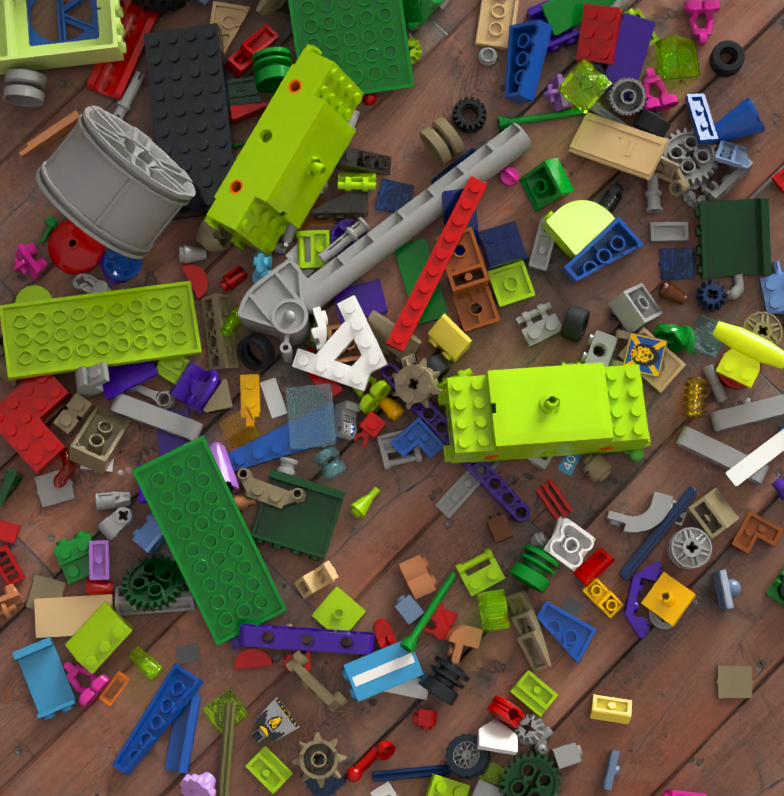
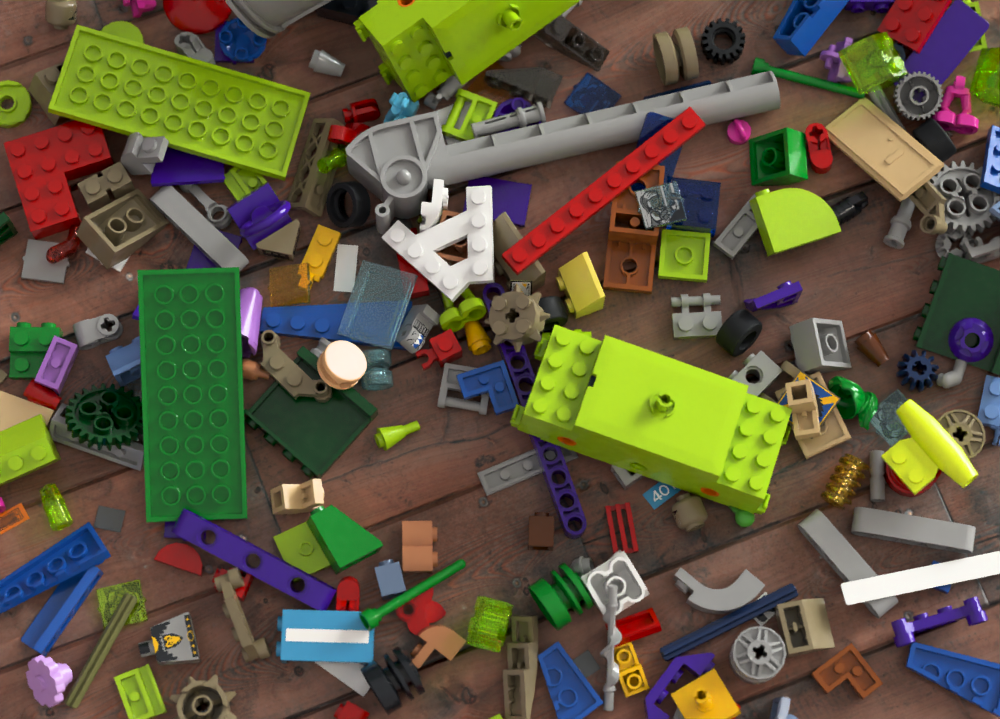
camera: 25 degrees right, 5 degrees down
(112, 500) = (104, 303): light grey hinge -> none
(198, 279) = (321, 95): red tile -> none
(212, 239) = (359, 55): dark tan cylinder -> none
(231, 299) = (347, 133): none -> red piece
(305, 471) = (341, 365): none -> head
(357, 181) = (555, 60): lime plate -> none
(361, 595) = (341, 538): none -> green slope
(411, 262) = (577, 176): green piece -> none
(481, 256) = (660, 205): none -> piece
(483, 578) = (495, 583): lime plate -> none
(567, 156) = (821, 159): none -> red piece
(586, 583) = (614, 638): none -> light grey piece
(596, 280) = (786, 295): none -> dark purple plate
(604, 249) = (811, 262): blue wedge -> none
(647, 360) = (804, 409): none -> tan brick
(668, 231) = (900, 275): light grey tile -> none
(676, 263) = (893, 316): clear blue piece -> none
(729, 257) = (957, 336): none -> dark purple piece

